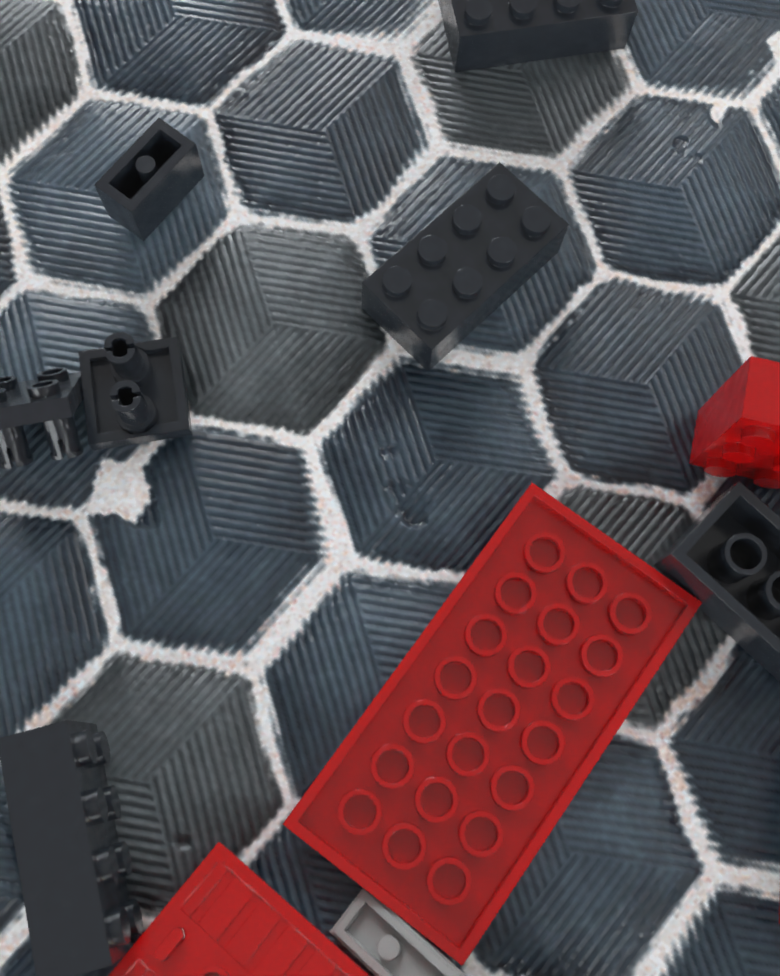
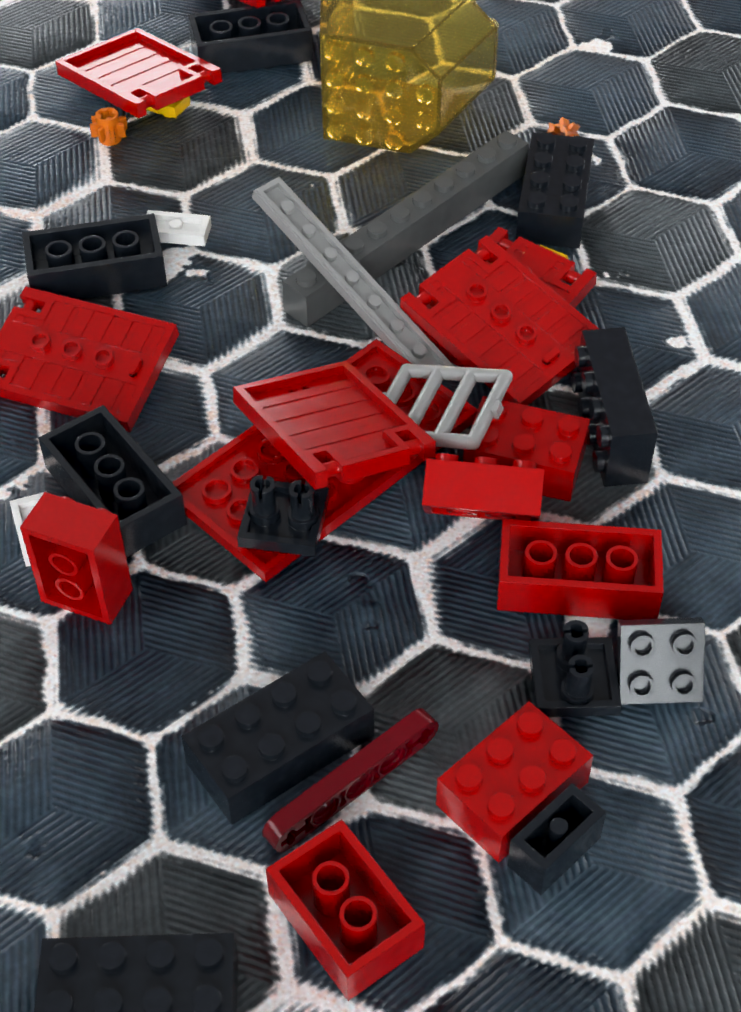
camera: 165 degrees left, 25 degrees down
(122, 531) = (580, 570): none -> red brick
(199, 246) = (511, 778): none -> red brick
(203, 754) = (540, 436): none -> red brick
(257, 629) = (482, 488): none -> red brick
(295, 854) = (468, 377): none -> light grey bar
(359, 87) = (345, 909): none -> red brick
(373, 237) = (349, 780): none -> dark red beam
(495, 709) = (332, 423): none -> red door
(527, 555) = (283, 516): none -> black plate

